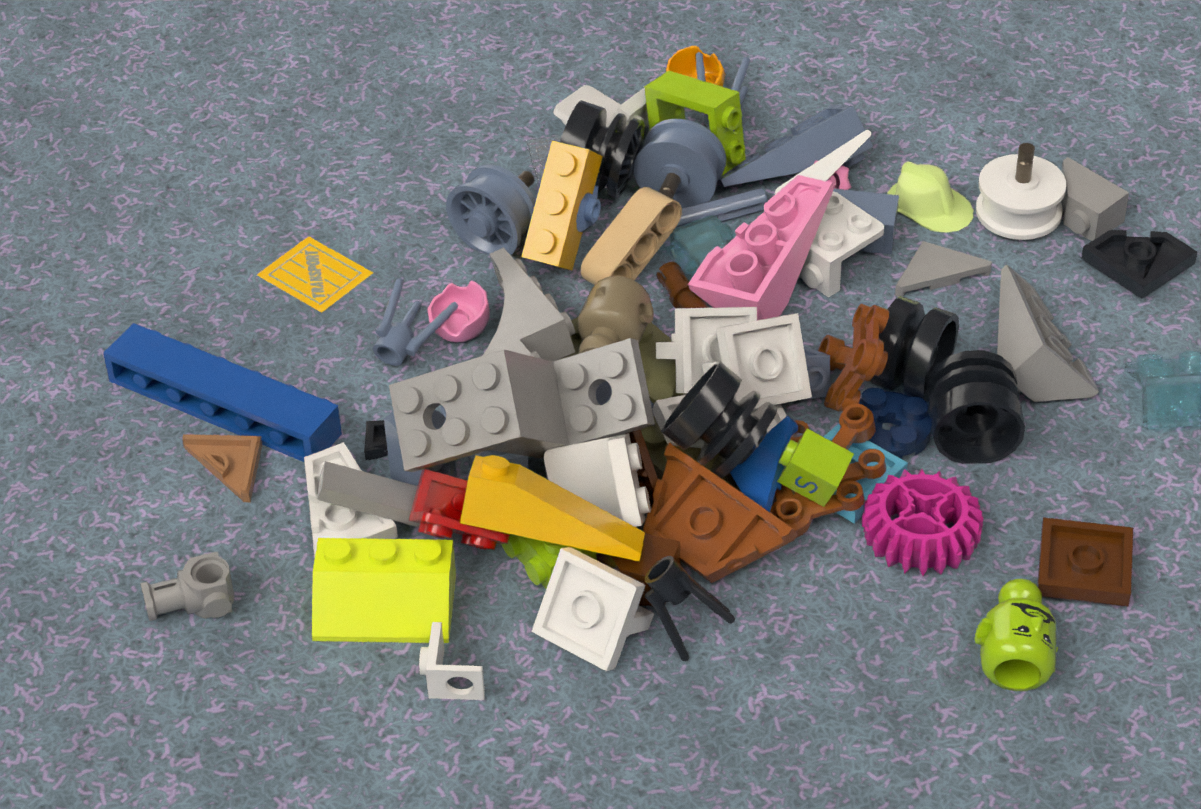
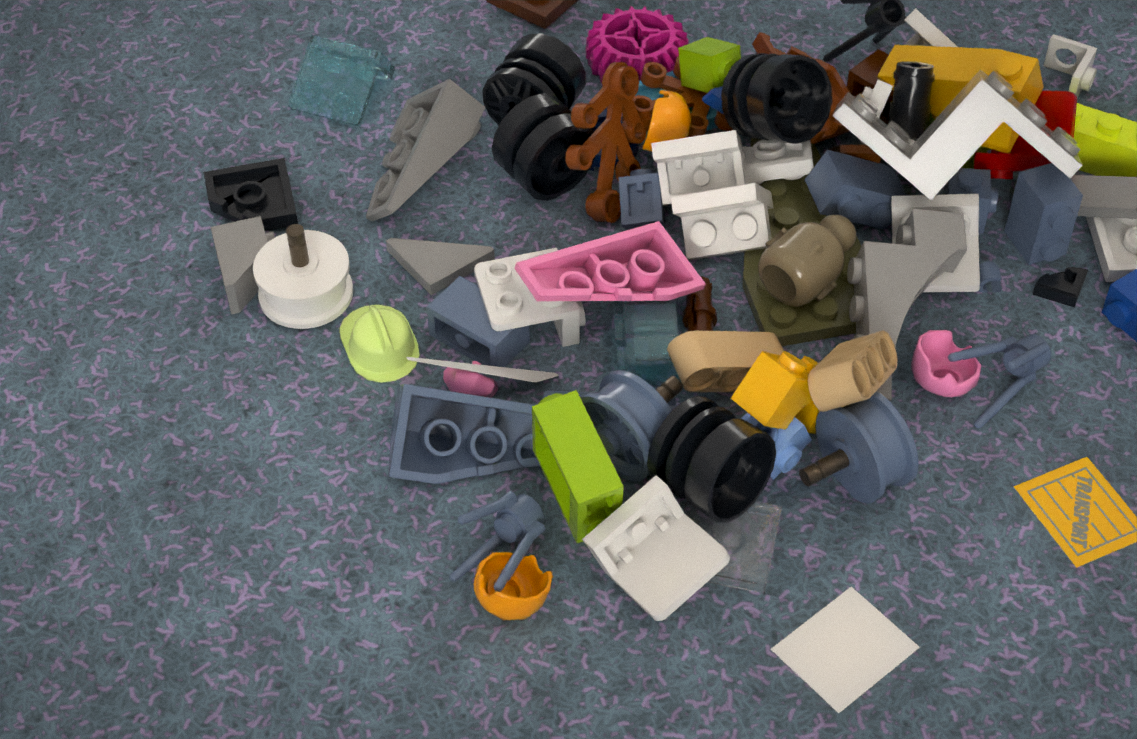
camera: 155 degrees left, 5 degrees up
(455, 140) = (845, 649): none -> white sticker
(520, 206) = (852, 371): none -> tan beam
(594, 480) = (912, 97): none -> black piece
(814, 401) = (669, 119): none -> light orange hair

